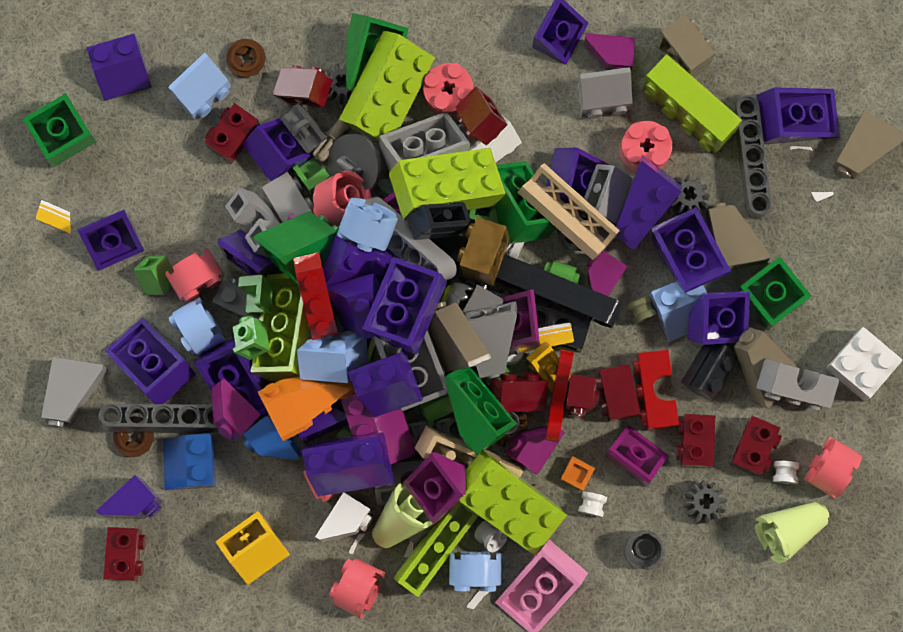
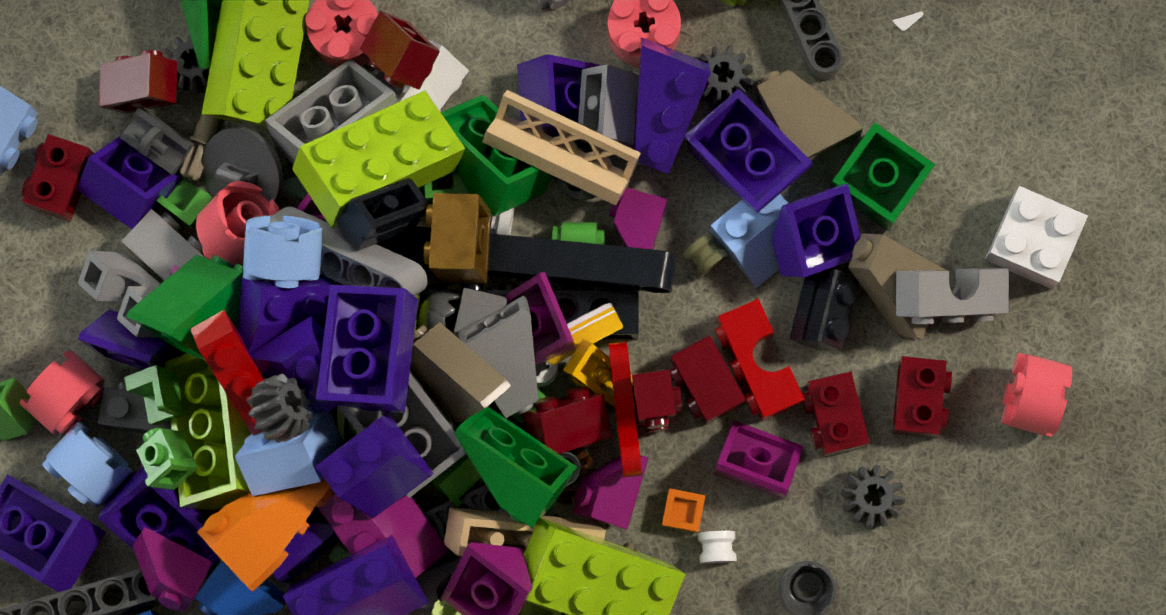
camera: 10 degrees left, 0 degrees up
(240, 48) = (36, 55): reddish brown gear -> none
(336, 327) = (280, 408): none -> dark grey gear
(785, 472) = (972, 421): white wheel -> none
(790, 529) = (1003, 498): yellowish green cone -> none

